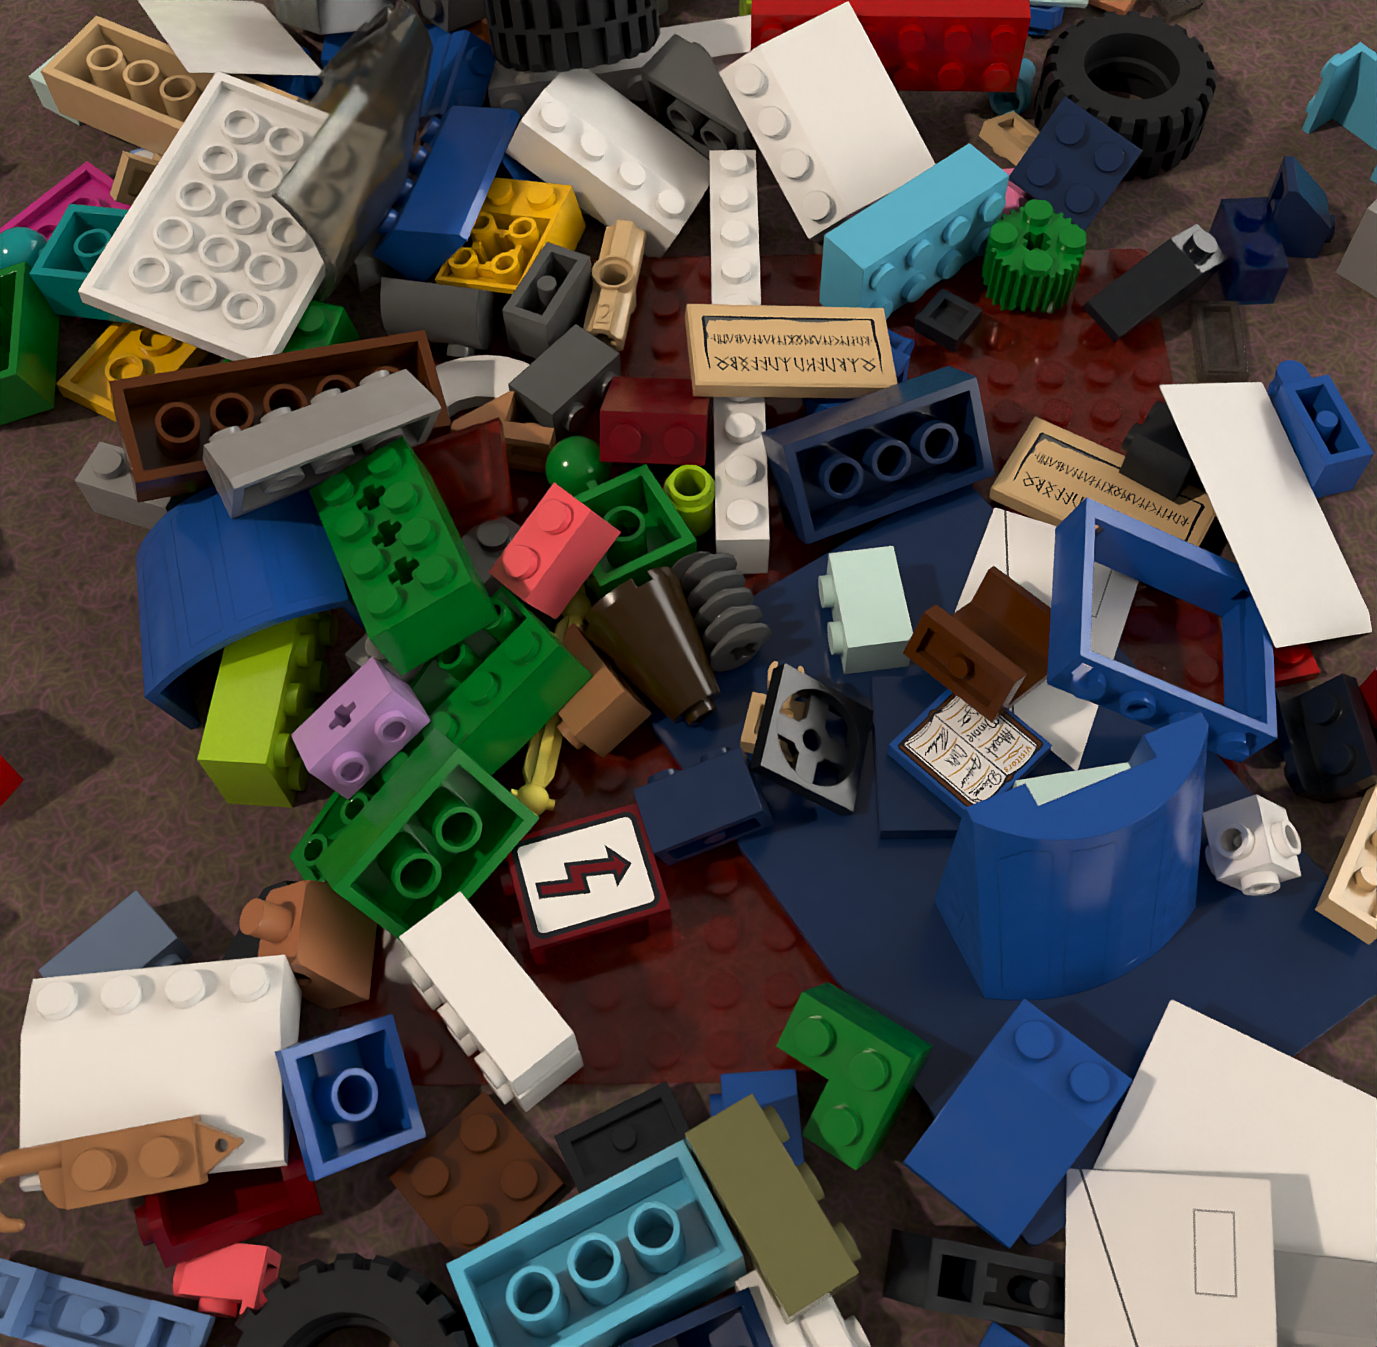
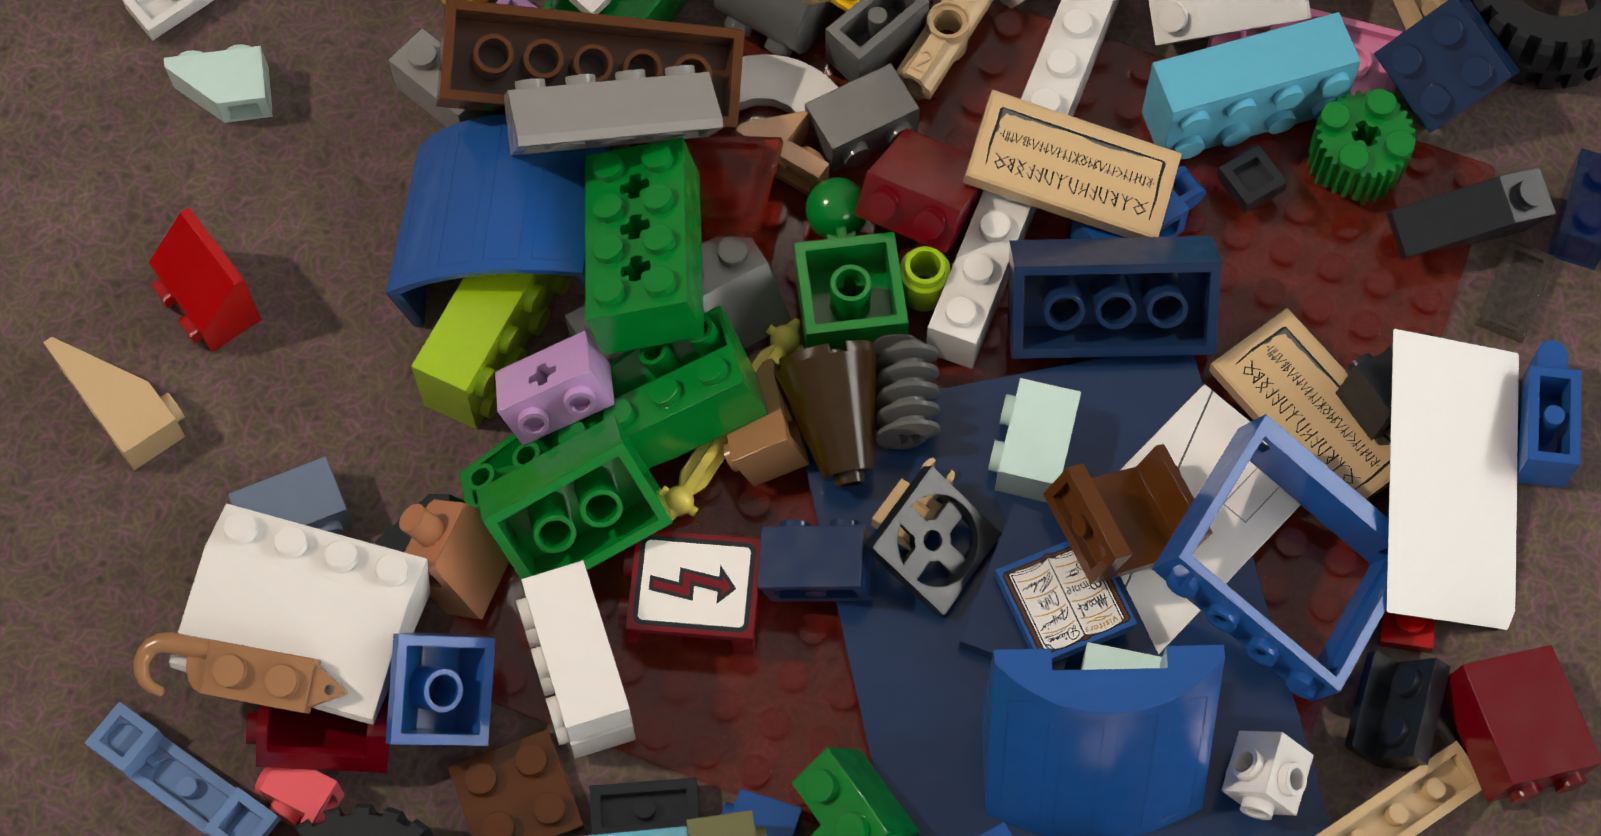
camera: 20 degrees right, 5 degrees up
(554, 552) = (776, 290): coral brick -> none

